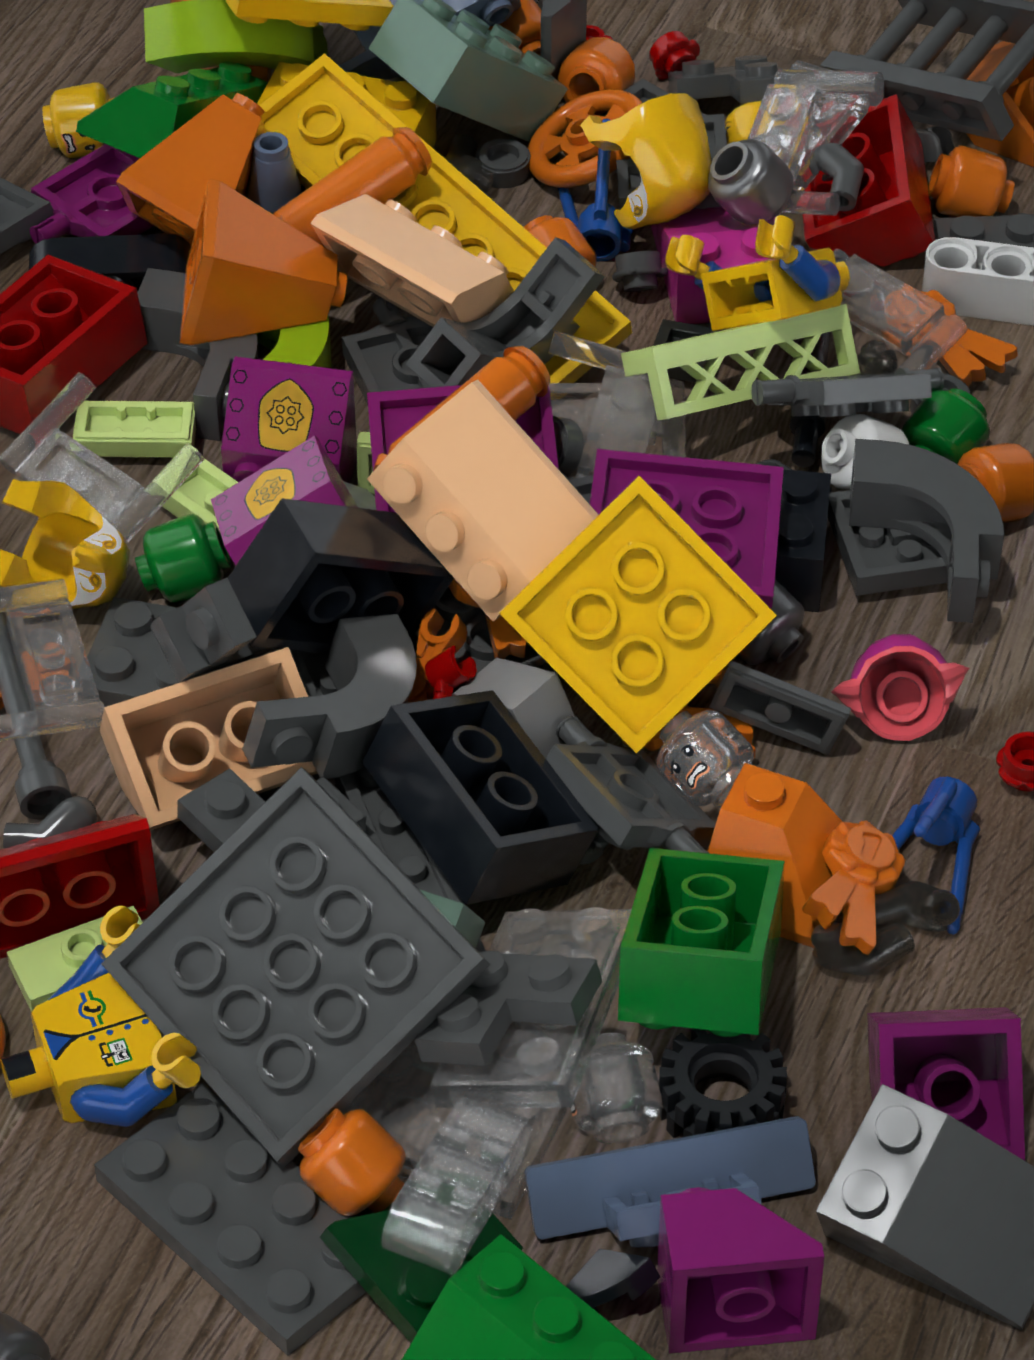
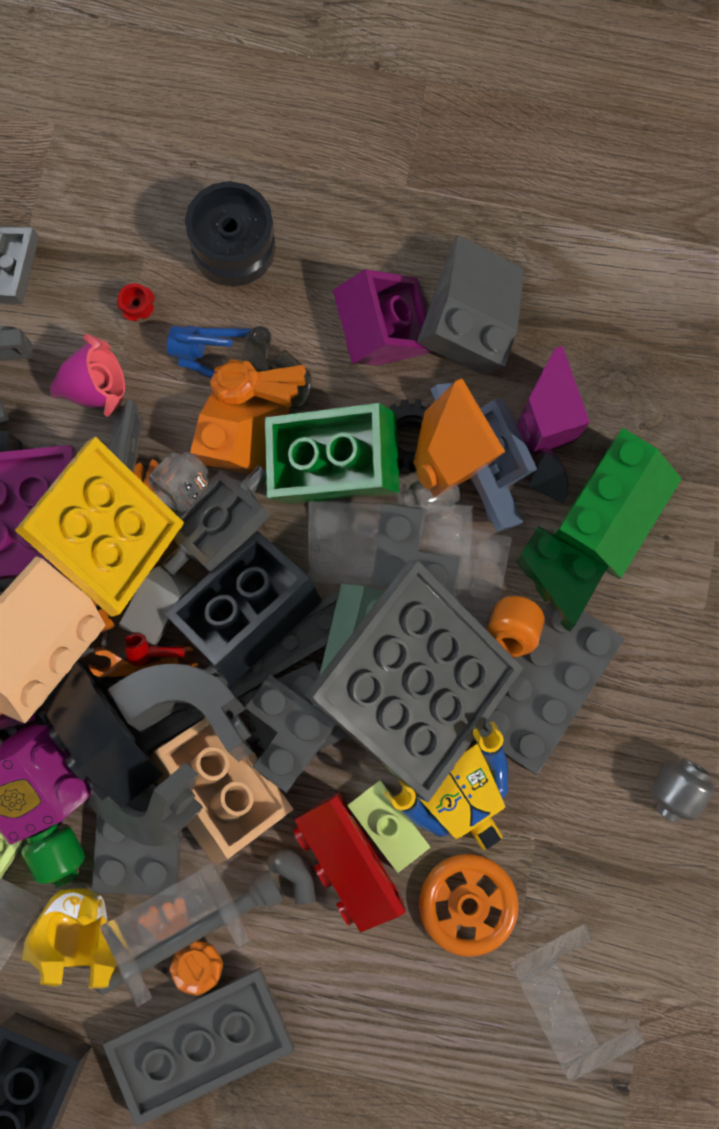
camera: 100 degrees left, 35 degrees up
(457, 1184) = (535, 557): clear beam -> none
(682, 1078) = (454, 441): none -> orange slope

